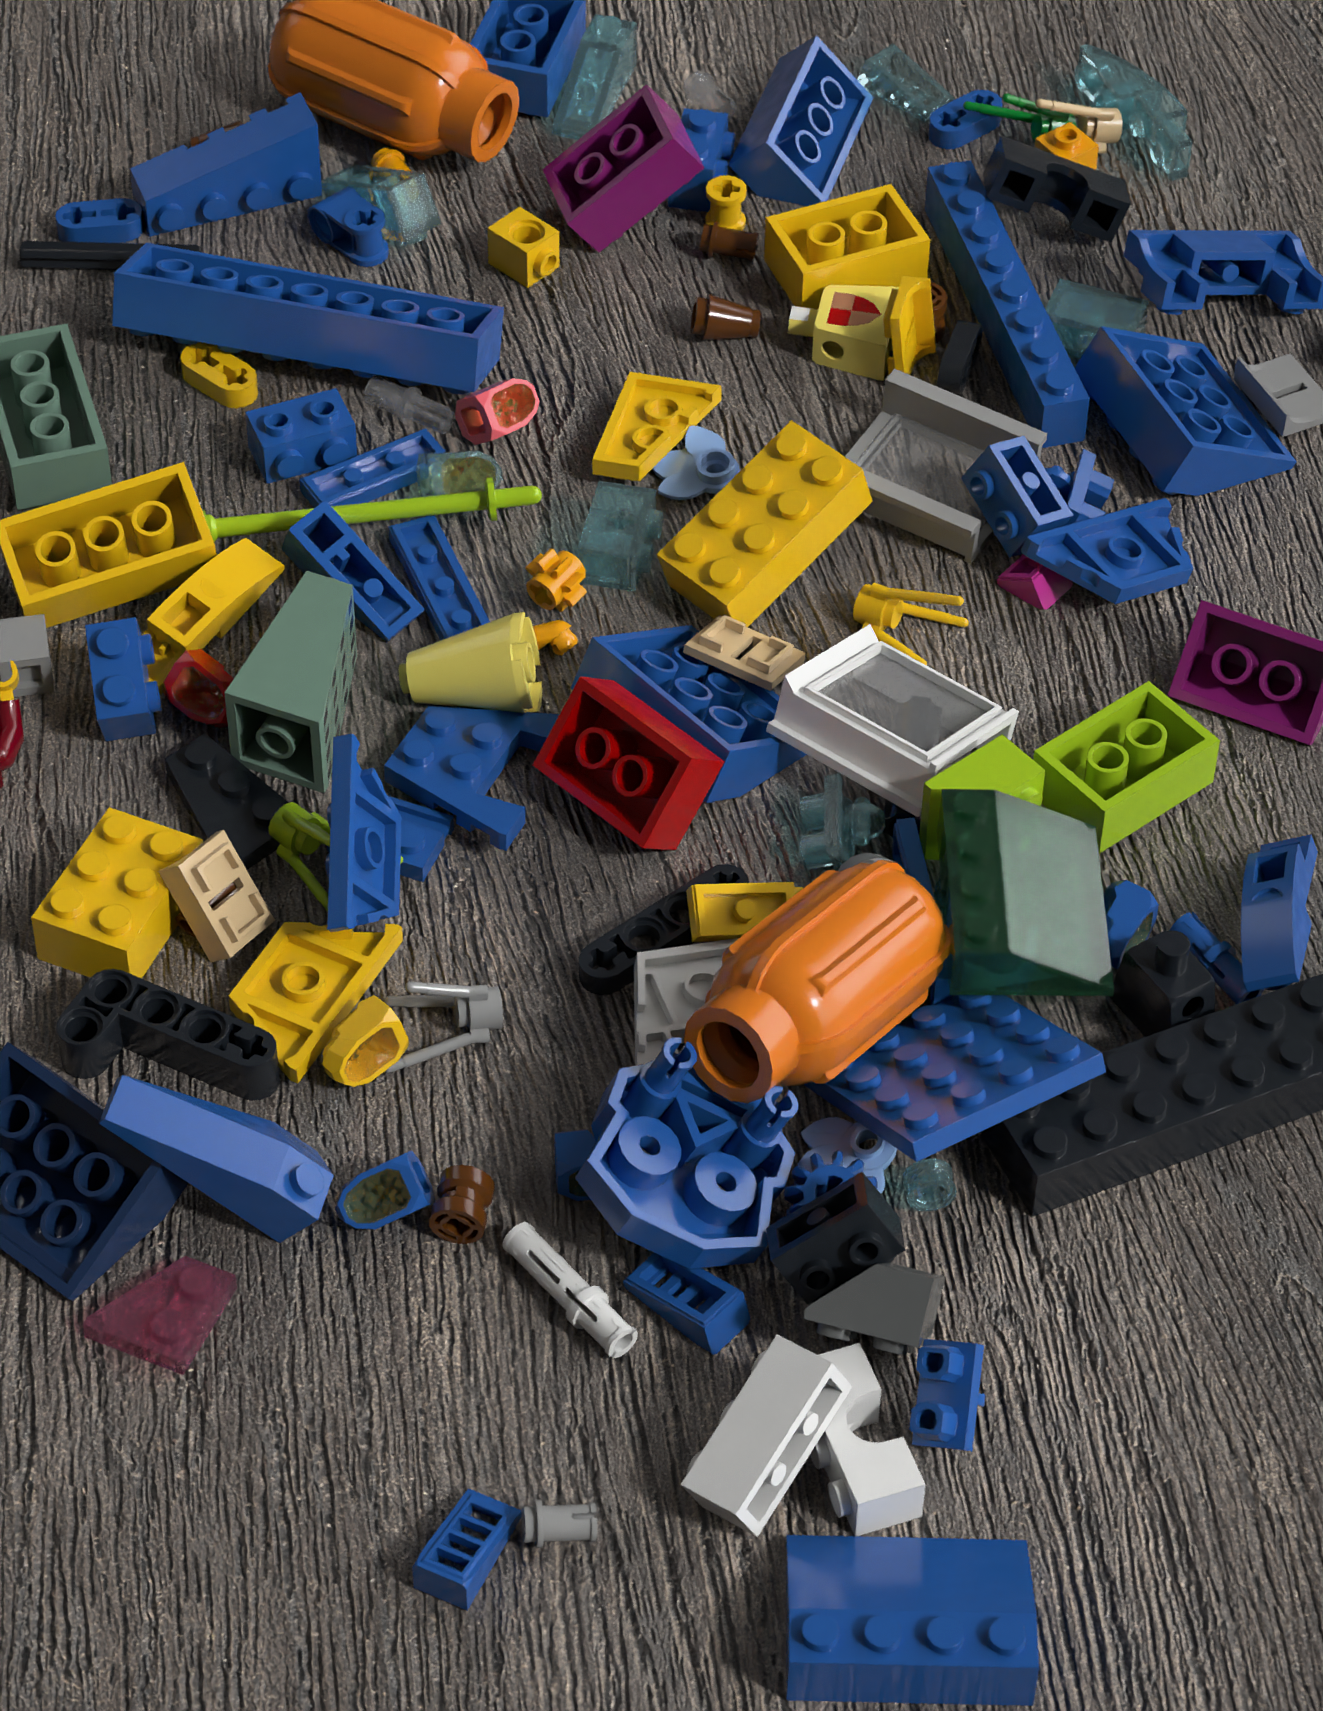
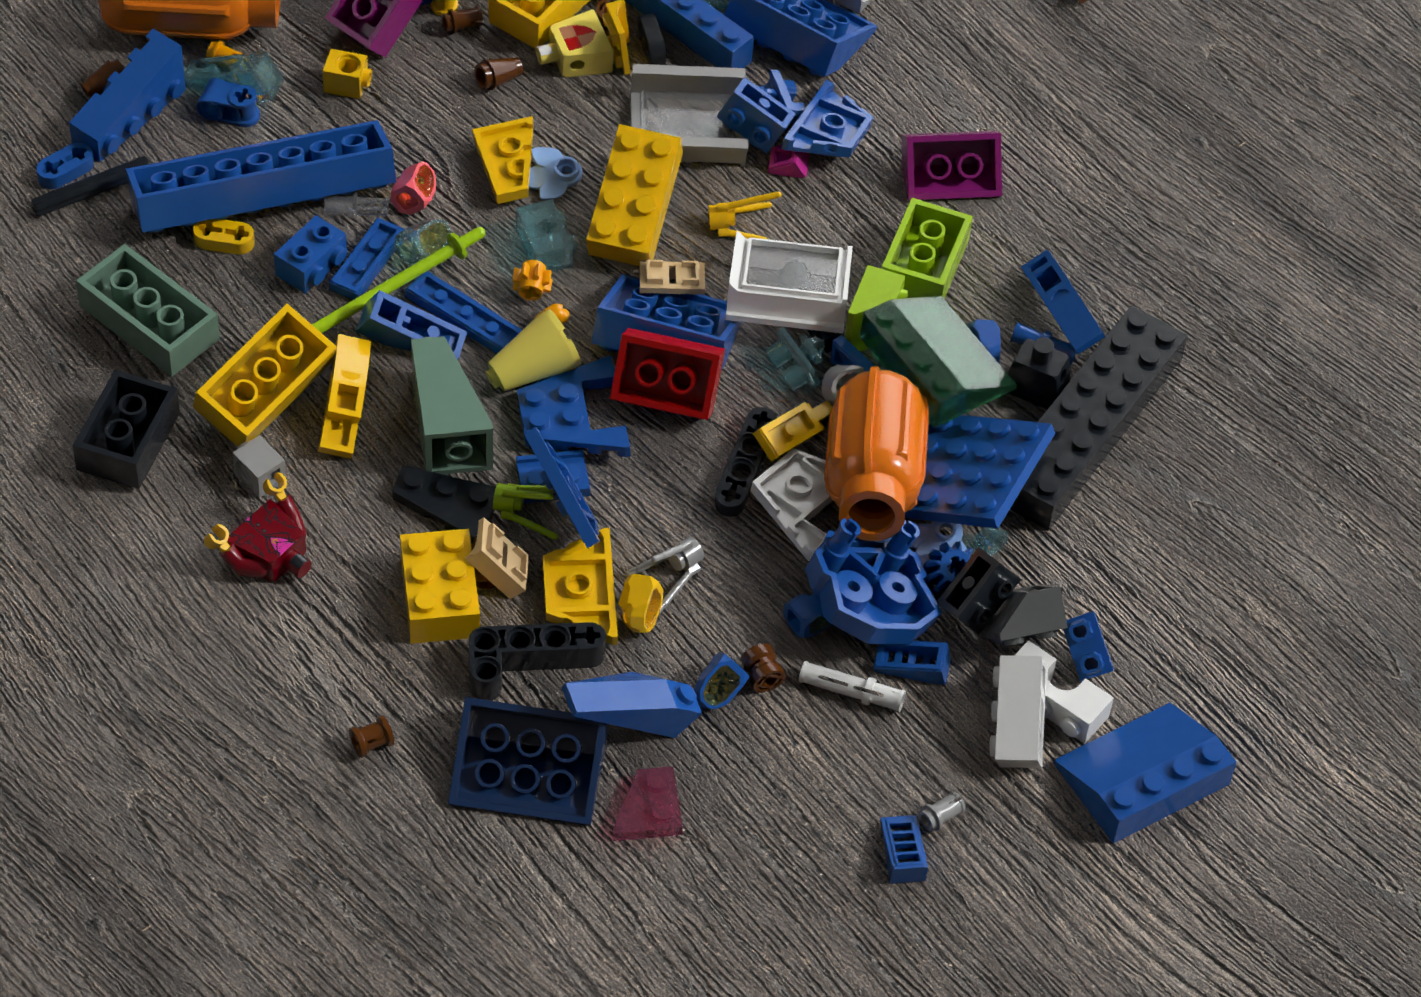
camera: 35 degrees left, 5 degrees up
(121, 679) = (339, 454): blue brick -> none
(199, 687) = (385, 439): rock -> none

